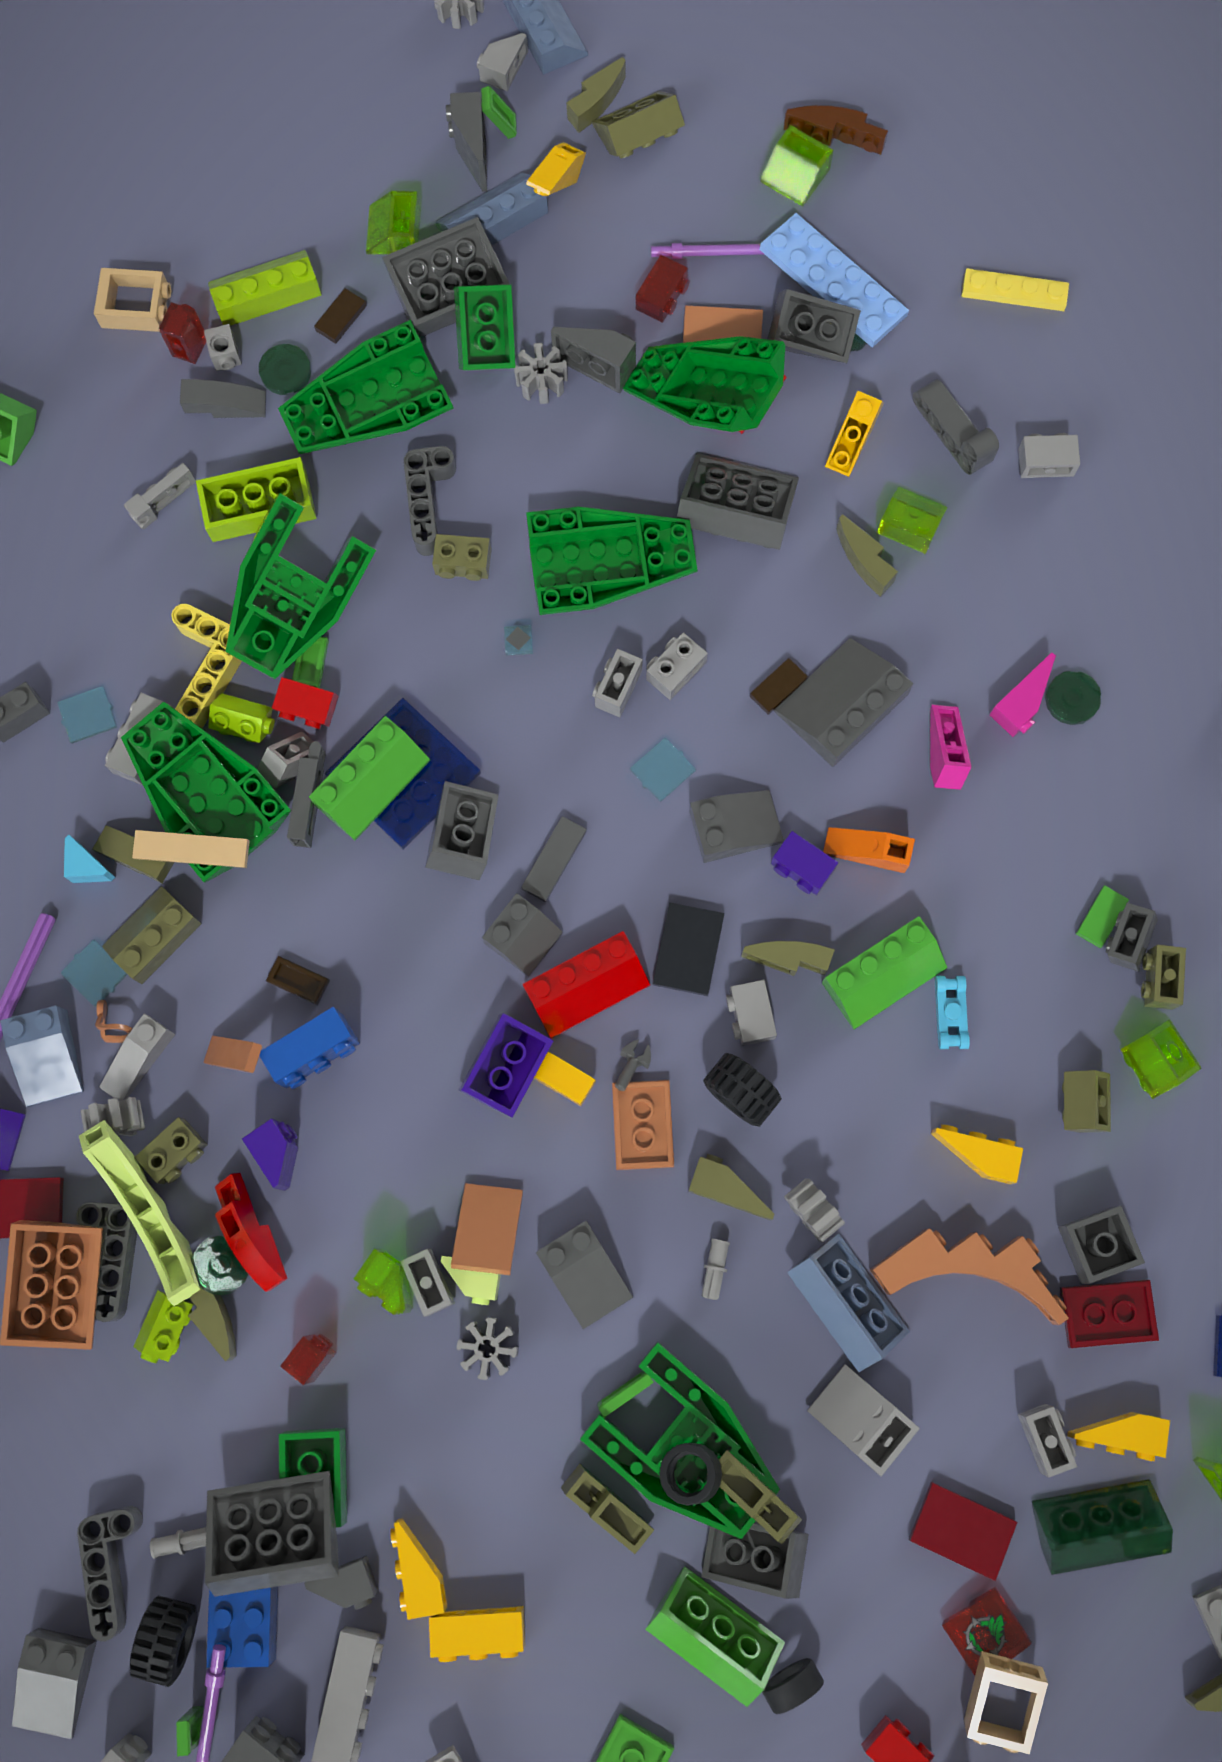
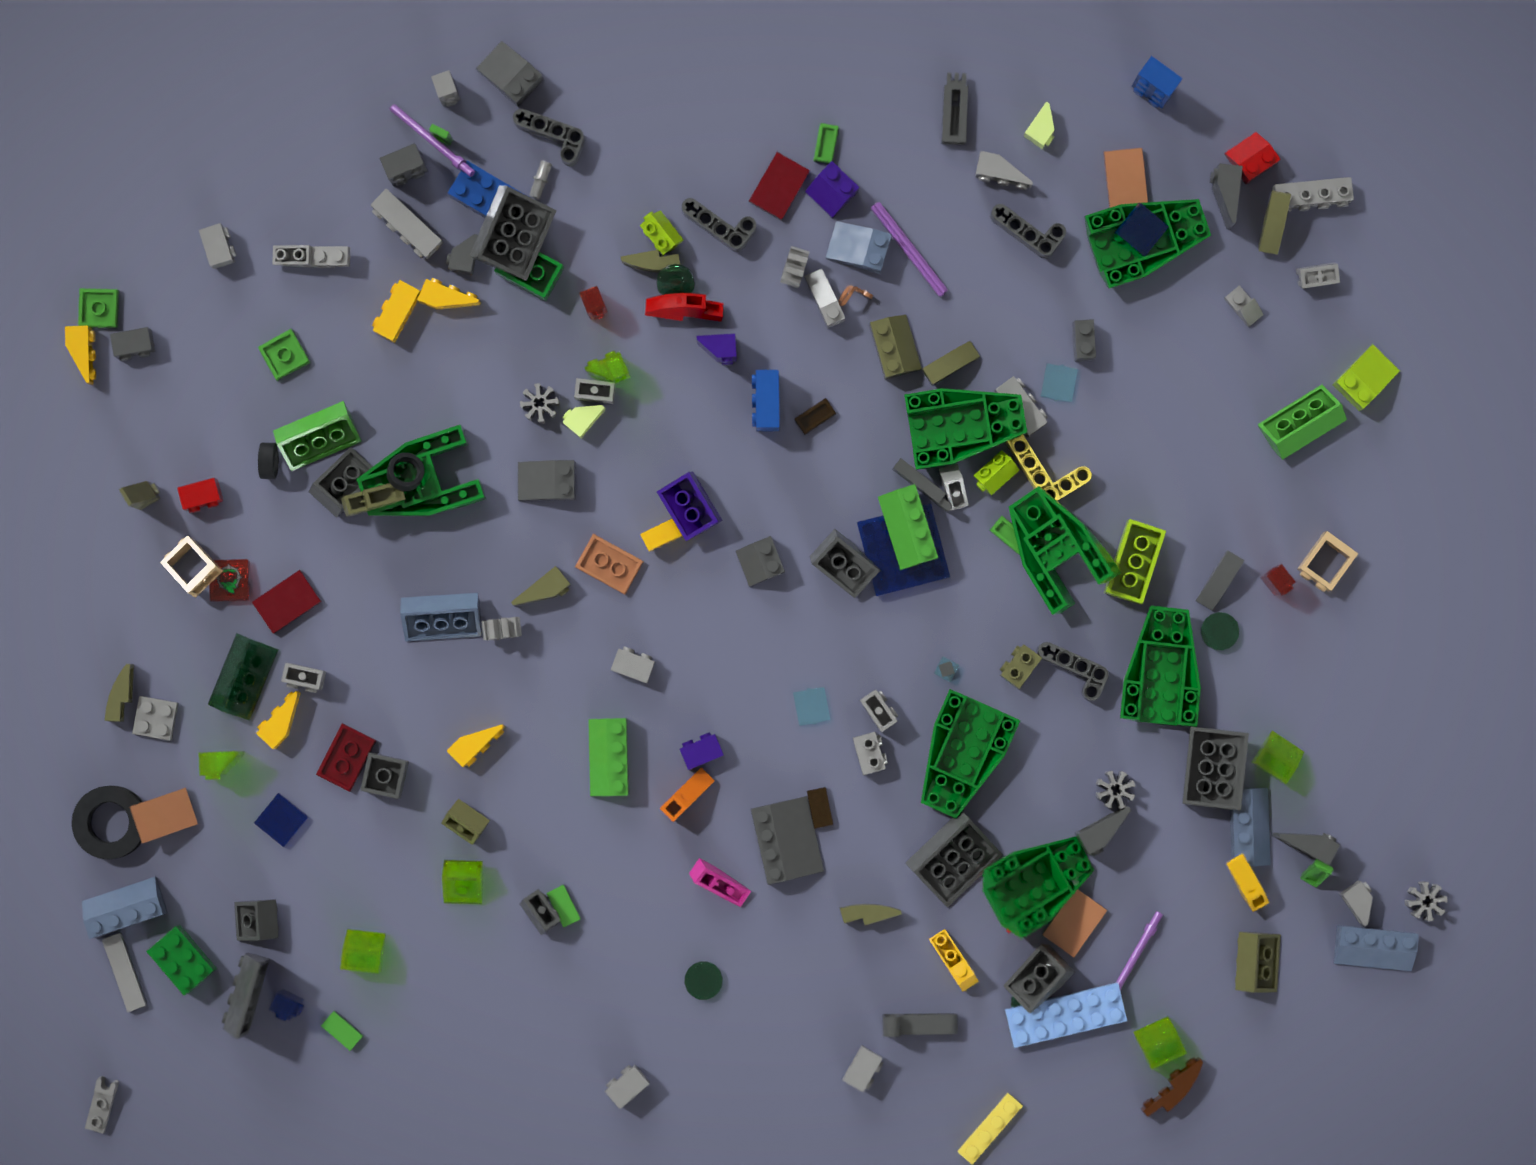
camera: 120 degrees right, 10 degrees up
(51, 1285) = (720, 185): nougat slope -> none
(81, 865) = (962, 330): medium azure slope -> none
(94, 973) = (892, 301): clear light blue piece -> none
(145, 1209) = (728, 257): yellowish green arch -> none
(157, 496) = (1173, 489): light grey plate -> none
(163, 1641) = (494, 145): black tyre -> none
(171, 1151) = (757, 289): olive brick -> none
(191, 849) = (925, 398): tan tile -> none
(218, 339) = (1264, 603): light grey brick -> none
(232, 1054) = (789, 354): nougat tile -> none
(264, 288) = (1287, 650): lime slope -> none
(304, 702) = (981, 516): red brick -> none
(340, 315) = (1236, 687): dark brown tile -> none
(484, 327) = (1161, 769): green brick -> none
(487, 1229) = (604, 441): nougat tile -> none
(554, 859) = (795, 607): dark grey tile -> none
(586, 984) = (708, 580): red slope -> none
(596, 95) = (1295, 948): olive slope -> none
(607, 1508) = (416, 417): olive slope -> none
(624, 1393) = (469, 462): bright green tile -> none
(632, 1064) = (646, 578): dark grey bar -> none
(662, 288) = (1127, 902): clear red brick -> none
(688, 949) = (693, 653): black tile -> none
(715, 1269) = (504, 554): light grey axle -> none
(735, 824) = (749, 727): dark grey slope -> none
(742, 1089) = (591, 630): black tyre -> none
(788, 955) = (652, 708): olive slope -> none
(863, 1420) = (375, 584): light grey slope -> none
(911, 519) = (876, 959): clear neon green slope -> none
(951, 1012) = (563, 781): medium azure plate -> none
(1010, 1266) = (405, 719): nougat arch -> none
(1022, 703) = (718, 946): dark pink slope -> none
(1164, 977) = (506, 914): olive brick -> none

